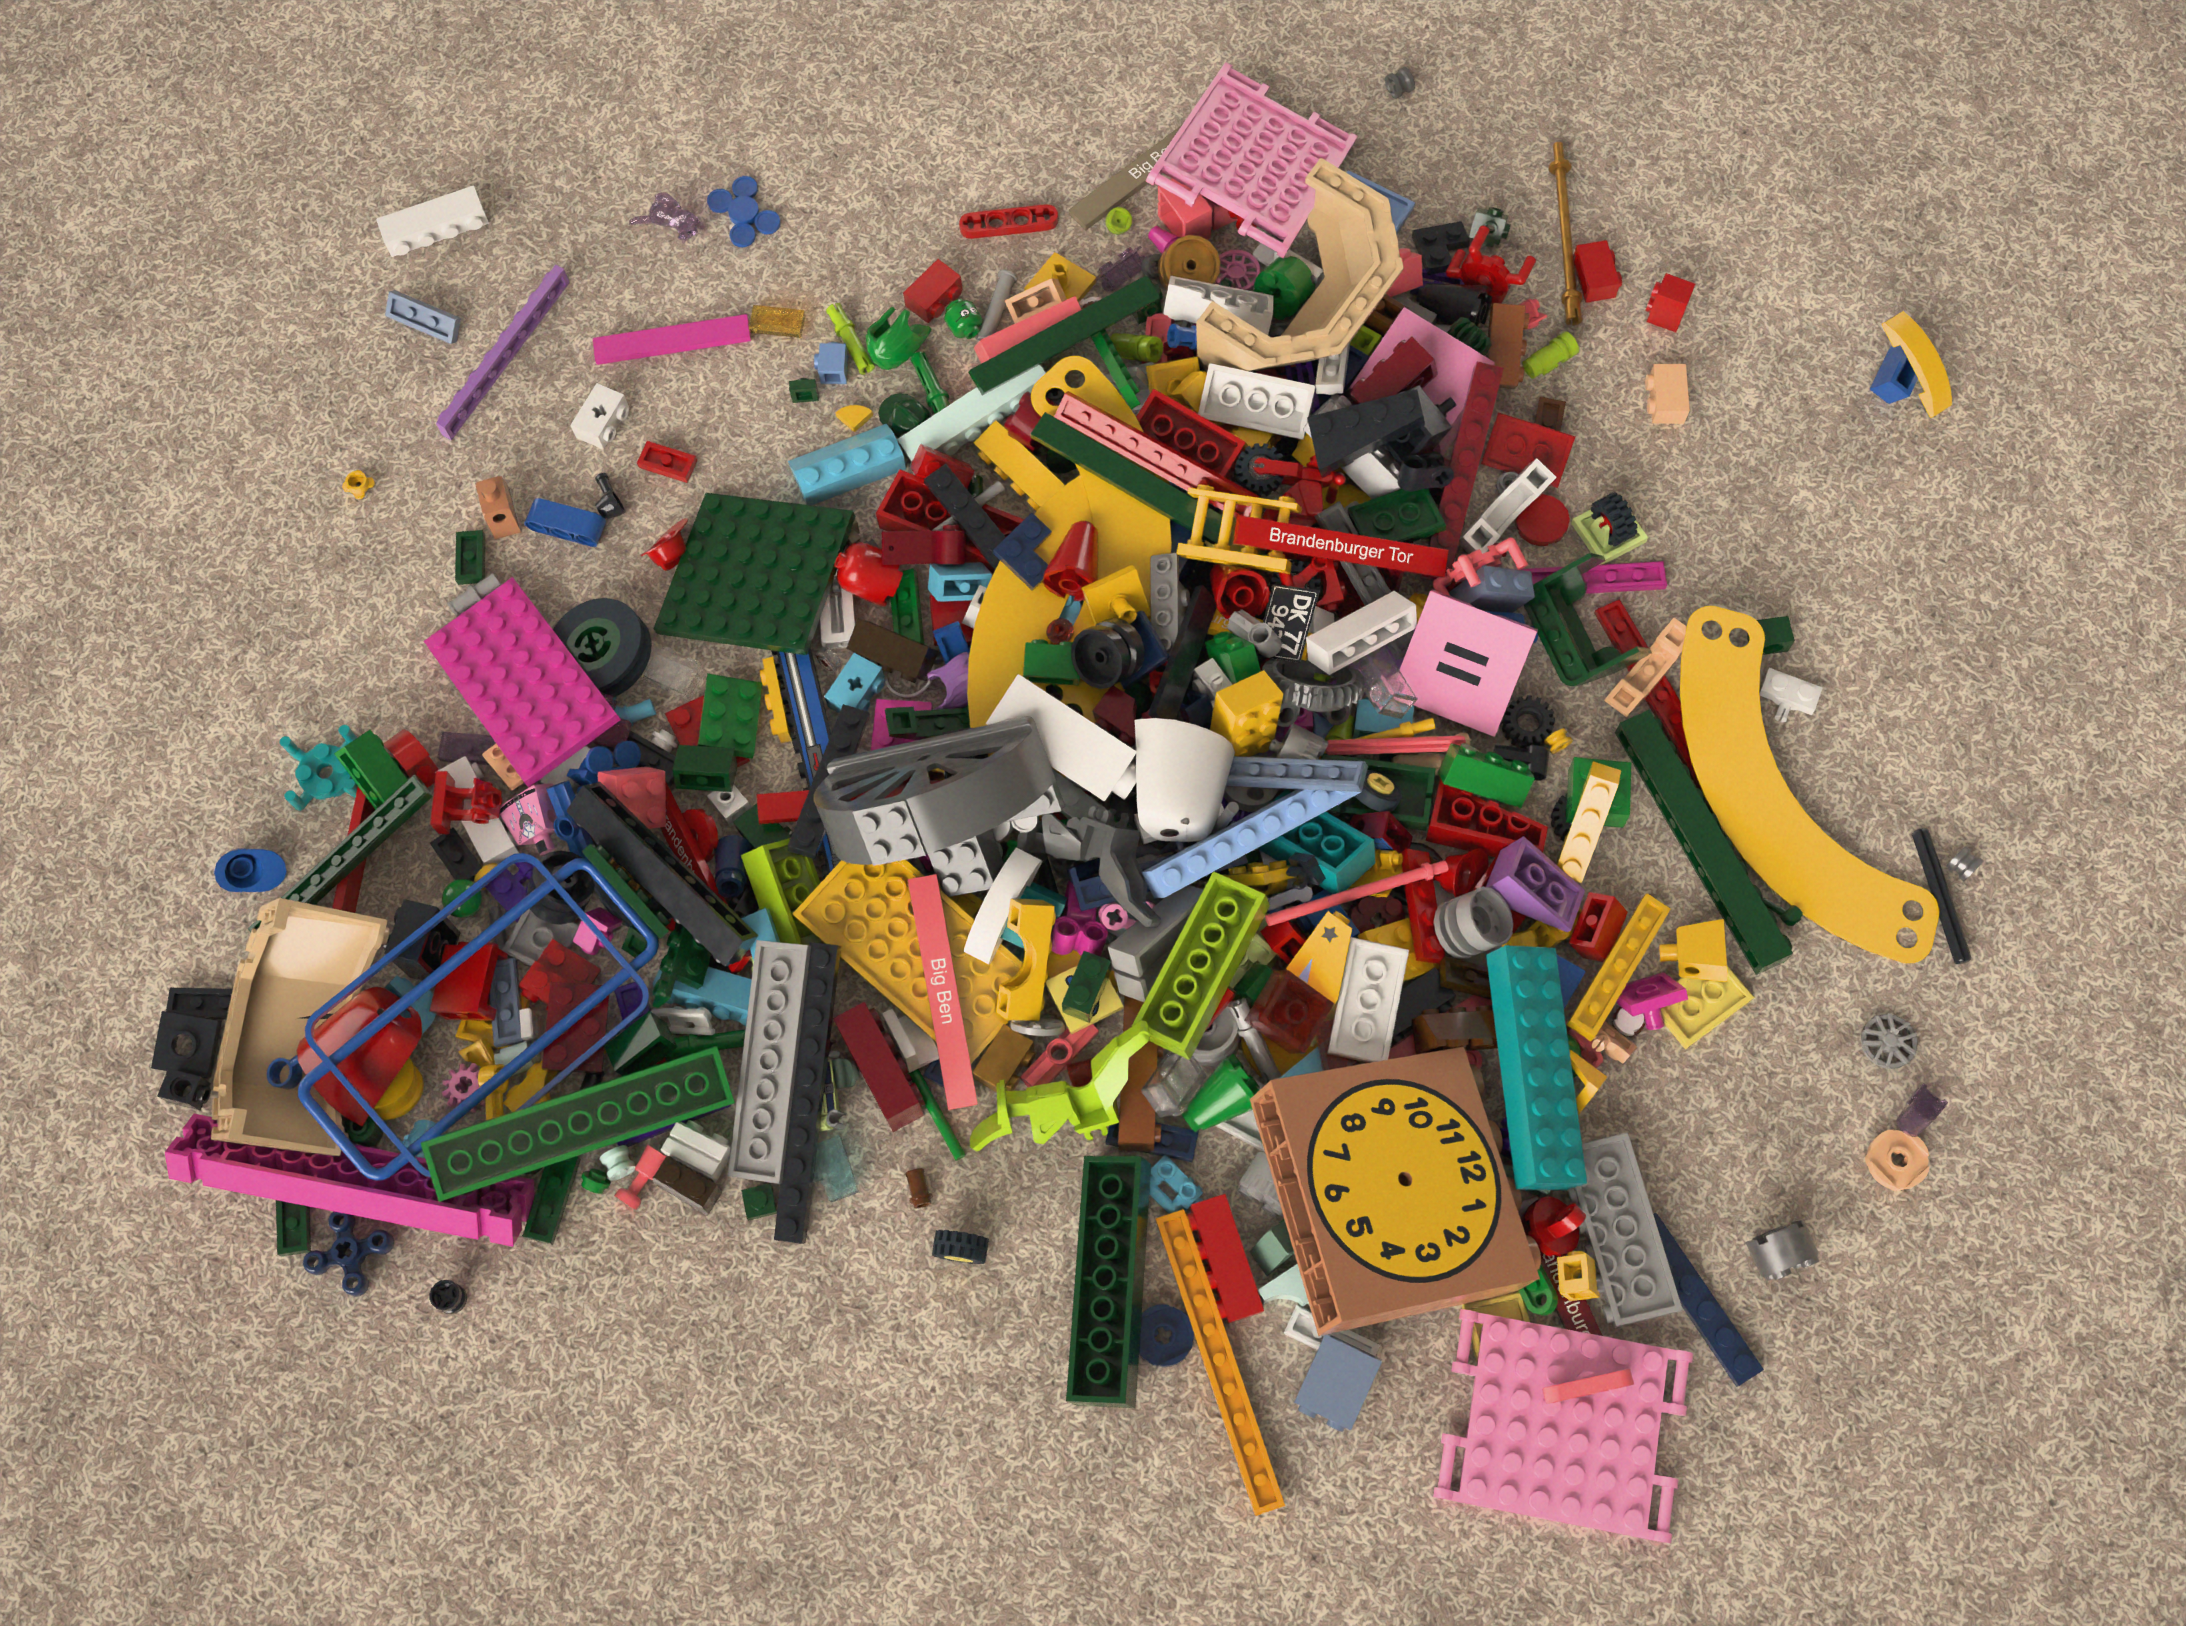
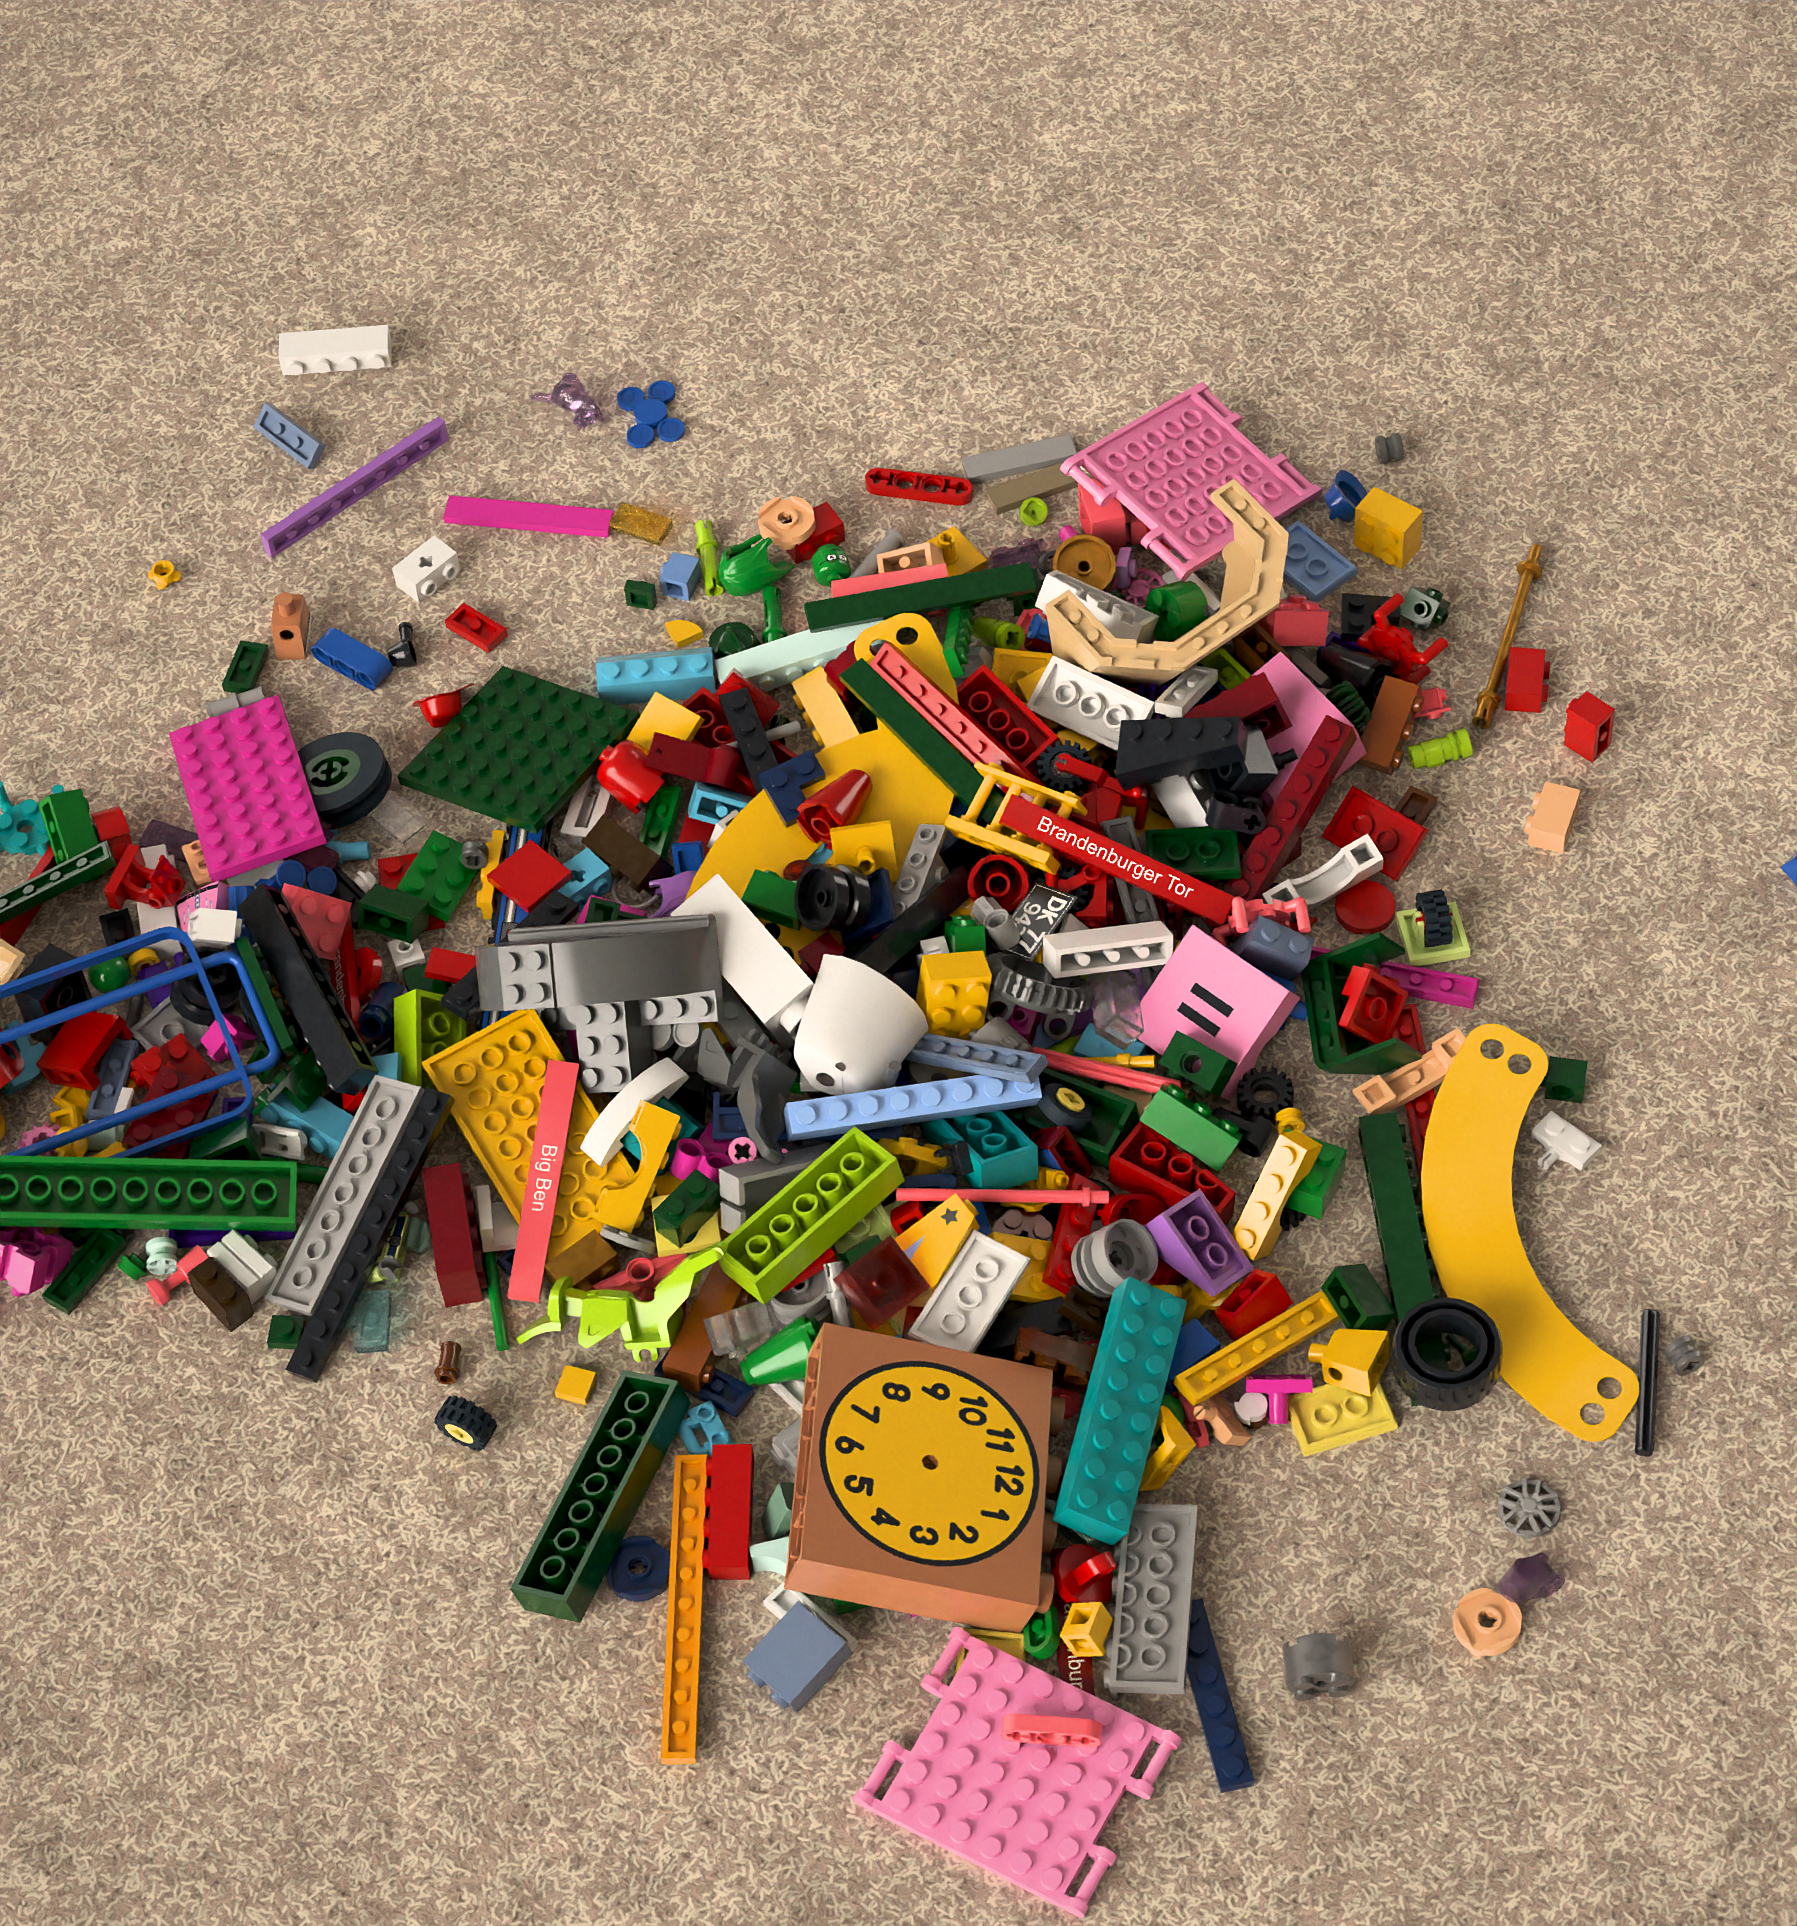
camera: 20 degrees right, 15 degrees down
(553, 842) = (213, 927): none -> white brick
(756, 689) = (474, 855): none -> dark grey bush
(814, 697) = (529, 876): none -> red tile
(880, 513) = (666, 718): none -> yellow tile
(917, 301) = (791, 533): none -> light nougat plate
(1039, 1173) = (576, 1384): none -> yellow tile
(1086, 172) = (1018, 459): none -> light grey tile
(1224, 253) = (1125, 567): none -> lavender plate
(1382, 140) = (1344, 496): none -> blue piece
(1432, 159) = (1388, 528): none -> yellow brick
(1489, 711) = (1215, 1067): none -> dark green brick
(1595, 614) = (1372, 1004): none -> red plate
(1682, 893) = (1358, 1298): none -> dark green brick
(1769, 958) = (1446, 1388): none -> black tyre

